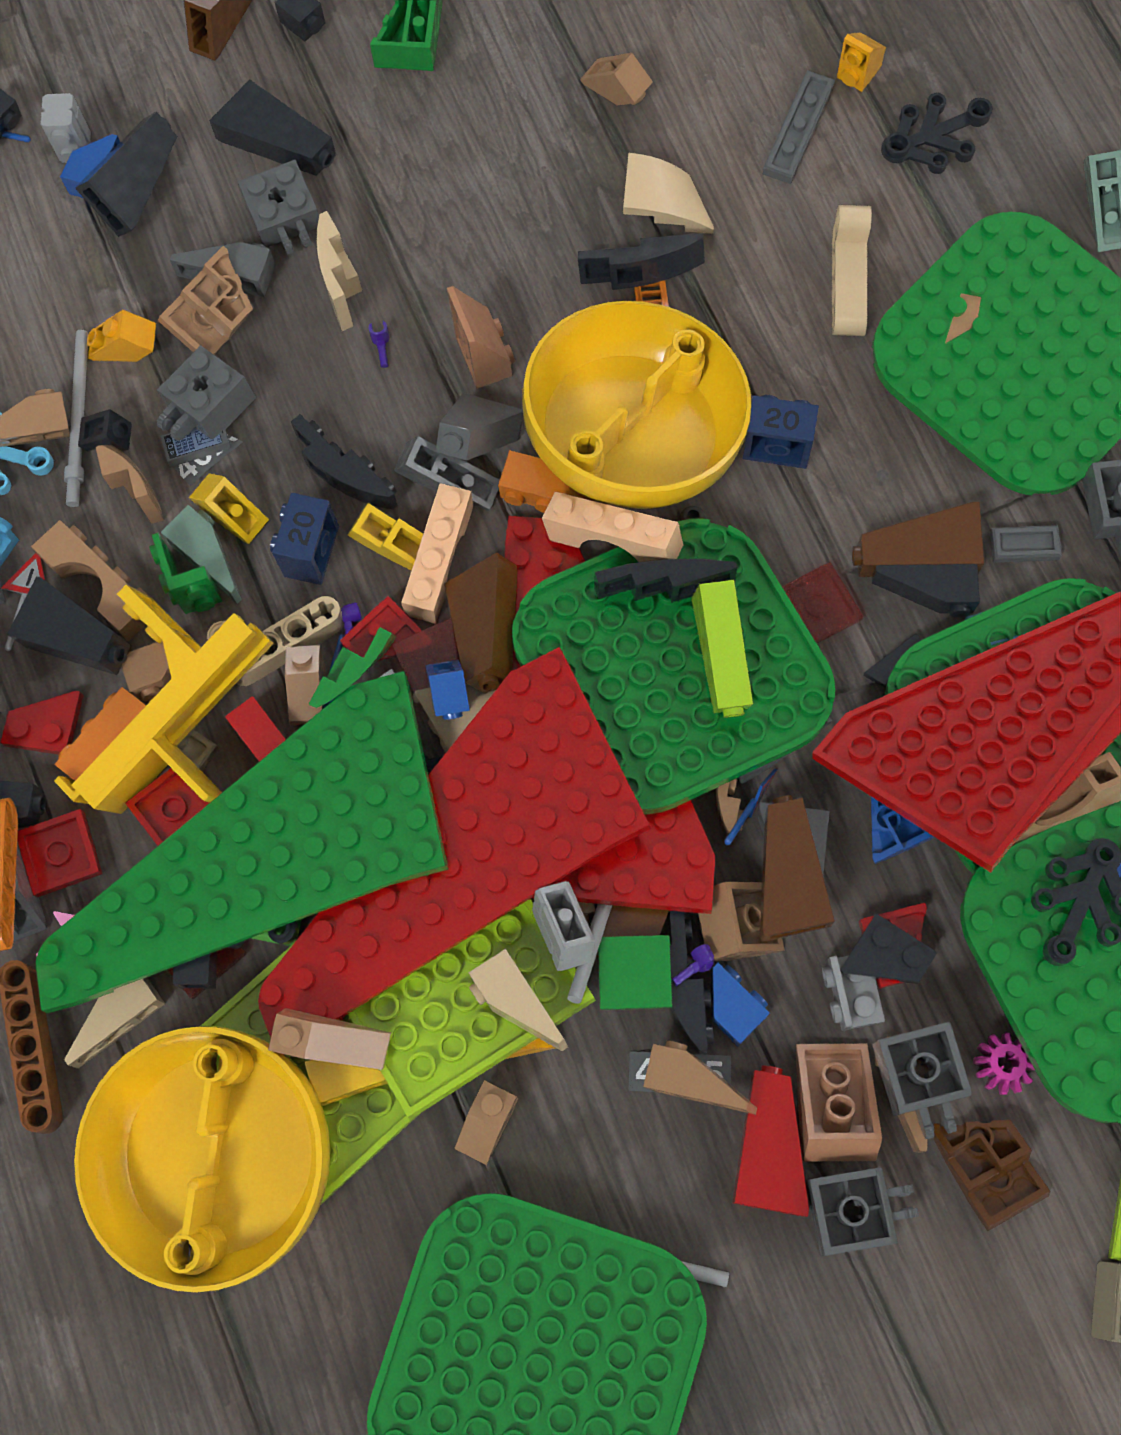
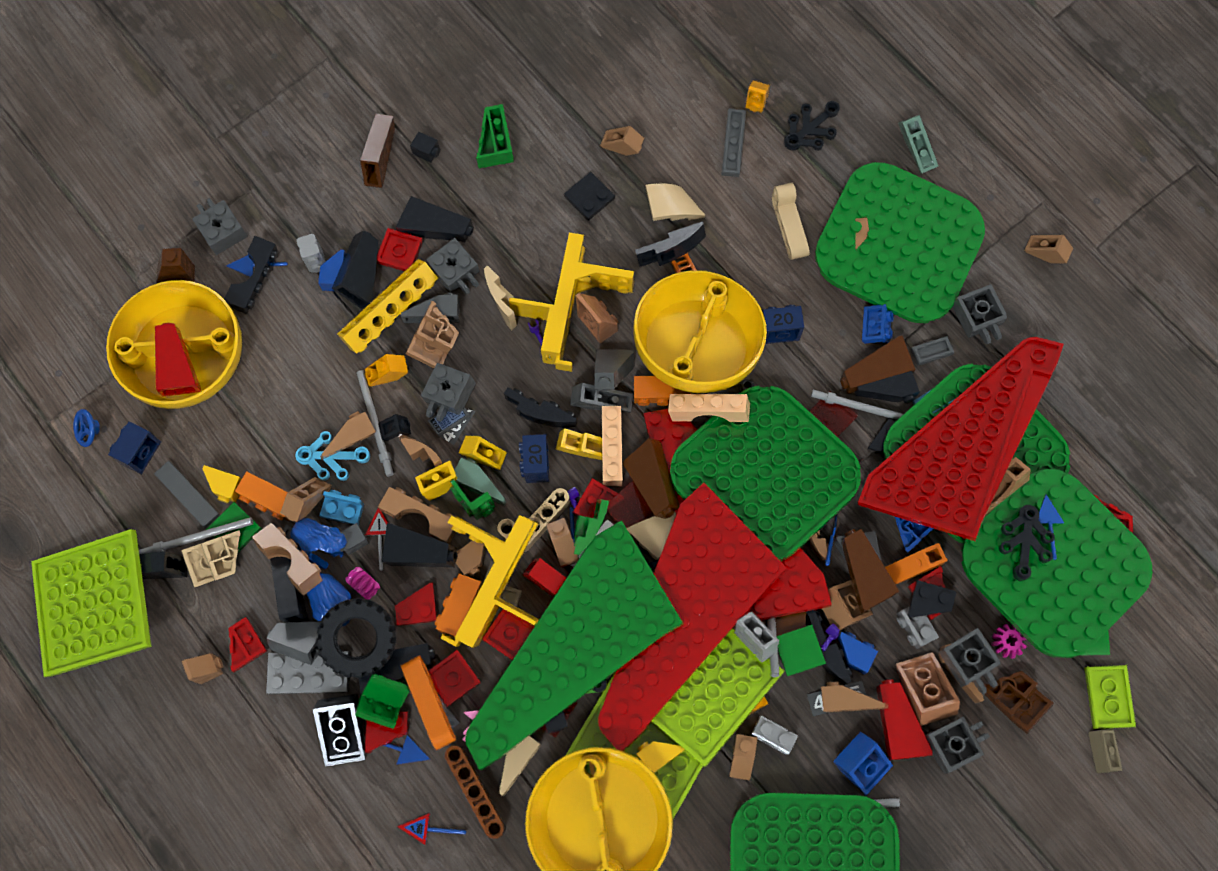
camera: 20 degrees left, 0 degrees up
(110, 251) = (378, 306): none -> yellow brick
(130, 531) = (436, 481): none -> yellow slope
(206, 161) = (398, 250): none -> red plate
(328, 1040) = (649, 737): slope -> none
(424, 320) = (572, 281): none -> yellow piece
(447, 689) = (646, 522): blue arch -> none
(511, 997) = (741, 684): tan slope -> none
(536, 153) = (589, 196): none -> black plate
(549, 1101) = (774, 735): none -> light grey brick
(674, 576) = (753, 425): black slope -> none
(686, 1194) = (863, 763): none -> blue slope
(722, 647) = (793, 457): lime slope -> none
(826, 573) = (831, 398): none -> light grey bar
(882, 887) = (917, 564): none -> orange slope
(944, 475) = (877, 324): none -> blue bracket

